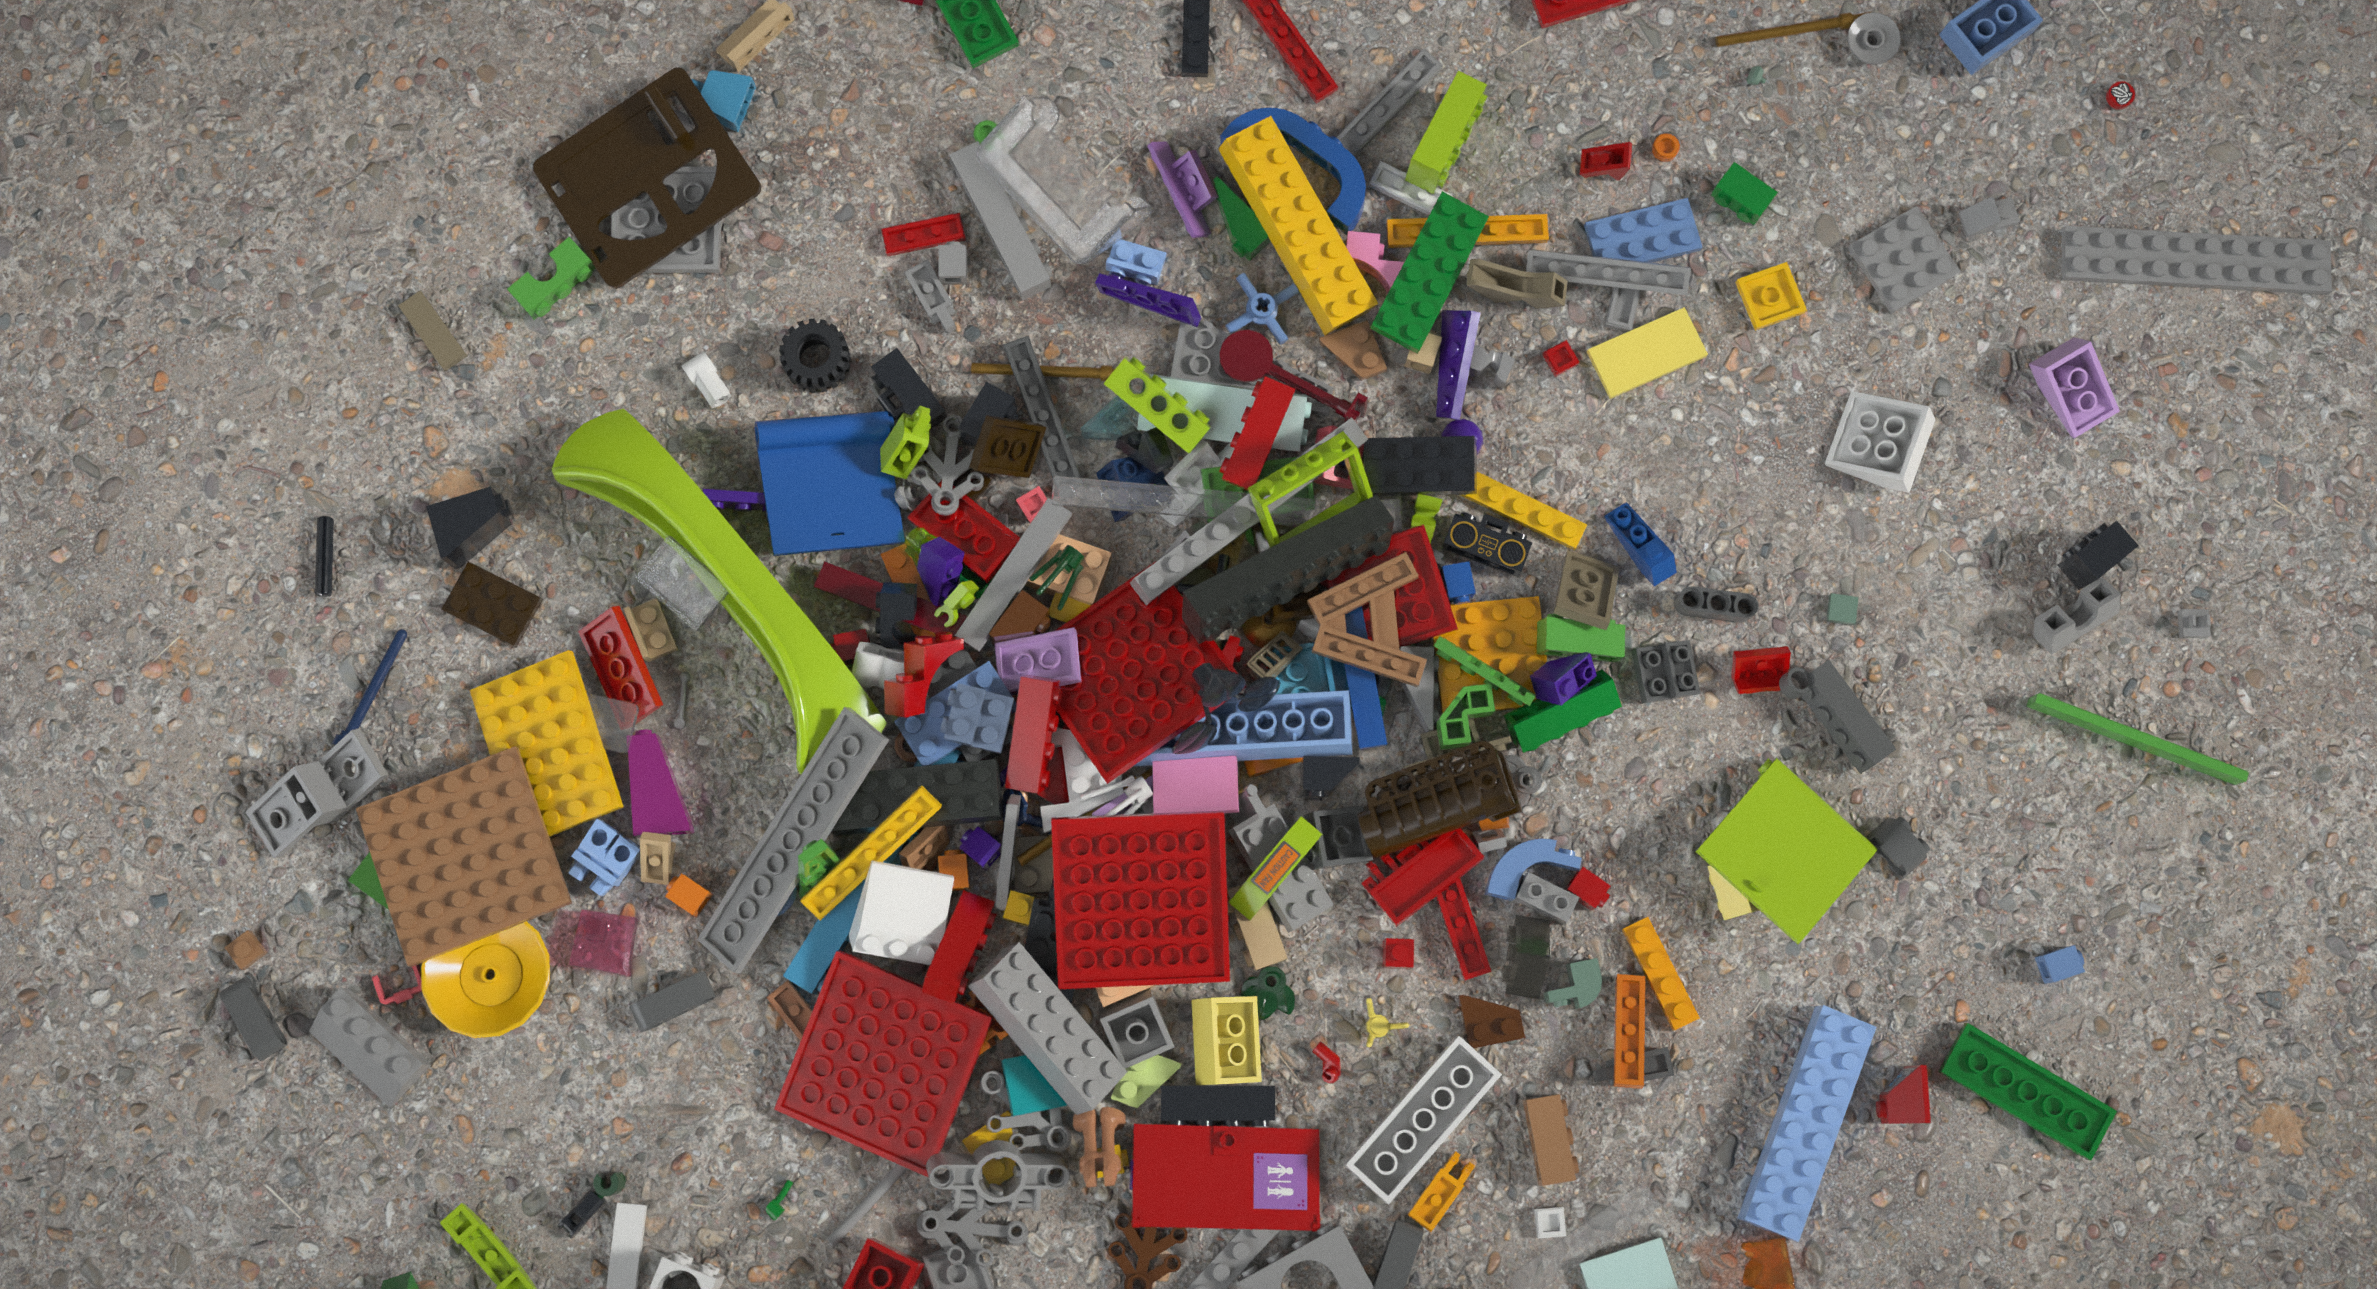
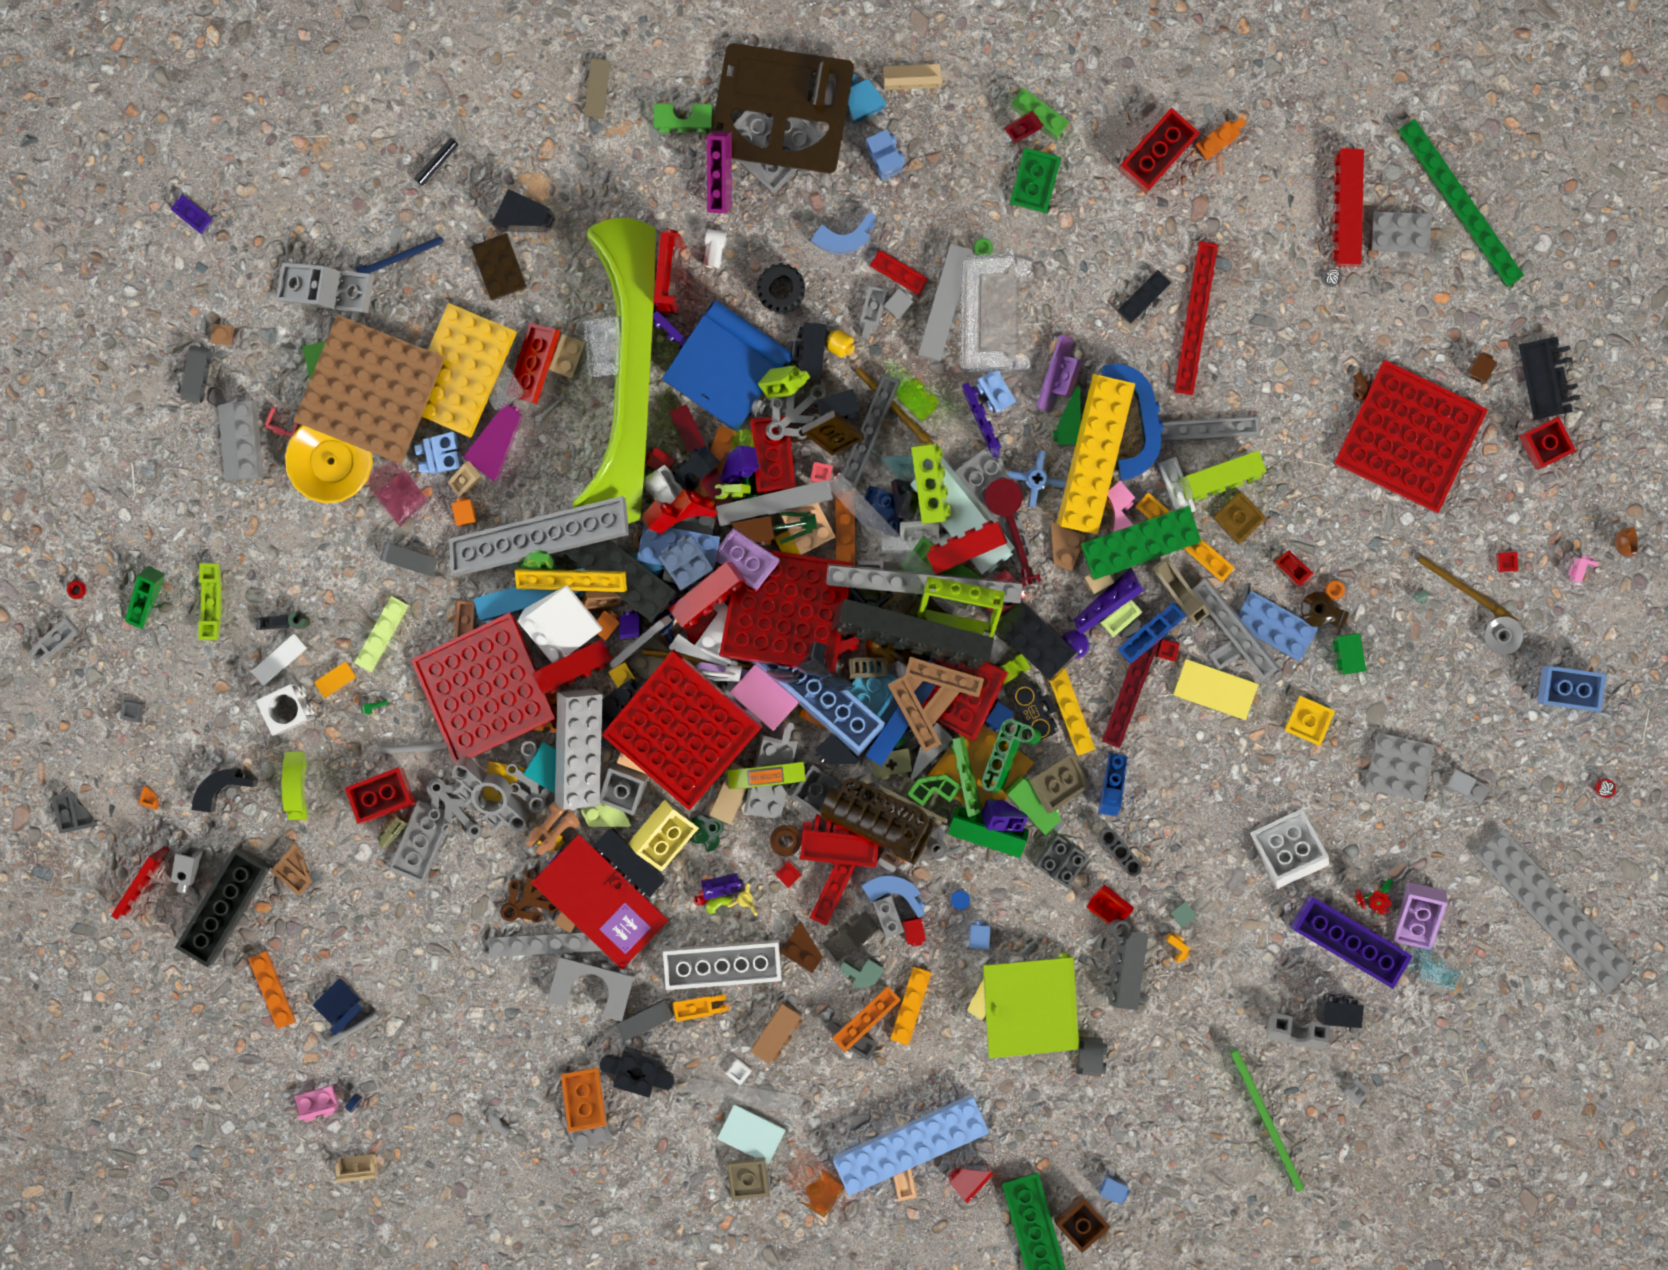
camera: 45 degrees right, 10 degrees up
(97, 851) = (191, 214): none -> dark purple plate
(639, 293) = (719, 172): none -> magenta brick
(658, 406) = (668, 241): none -> red panel
(709, 1210) = (335, 679): none -> light orange tile
(716, 1112) = (381, 634): none -> yellowish green plate
(798, 127) = (884, 154): none -> medium blue brick
(834, 259) = (844, 244): none -> medium blue arch
(929, 356) = (840, 343): none -> yellow head
(1064, 341) = (917, 400): none -> clear neon green brick
(1112, 538) = (845, 533): none -> orange plate
(1209, 1238) = (563, 922): none -> medium nougat tile
(1340, 1035) = (721, 886): none -> dark purple hinge
(1350, 932) = (785, 829): none -> reddish brown piece
(1350, 1059) = (715, 903): none -> lime arm
(1408, 726) = (902, 768): none -> olive brick
(1484, 365) = (1121, 618): none -> yellowish green tile
(1502, 163) = (1239, 517): none -> pearl gold tile
(1507, 610) = (1007, 757): none -> green beam
(1529, 352) = (1151, 633): none -> blue slope
(1564, 433) = (1128, 698): none -> dark red plate
(1602, 811) = (960, 899): none -> blue tile
(1659, 828) = (979, 935): none -> medium blue brick
(1671, 178) = (1319, 609): none -> dark brown animal
(1843, 1175) = (904, 1185): none -> light nougat tile
(1865, 642) = (1177, 941): none -> light orange bracket
(2019, 403) = (1378, 899): none -> red plant
(2035, 474) = (1351, 941): none -> dark purple brick
(2065, 1031) = (1082, 1223): none -> reddish brown brick
(2155, 425) = (1439, 975): none -> clear light blue slope

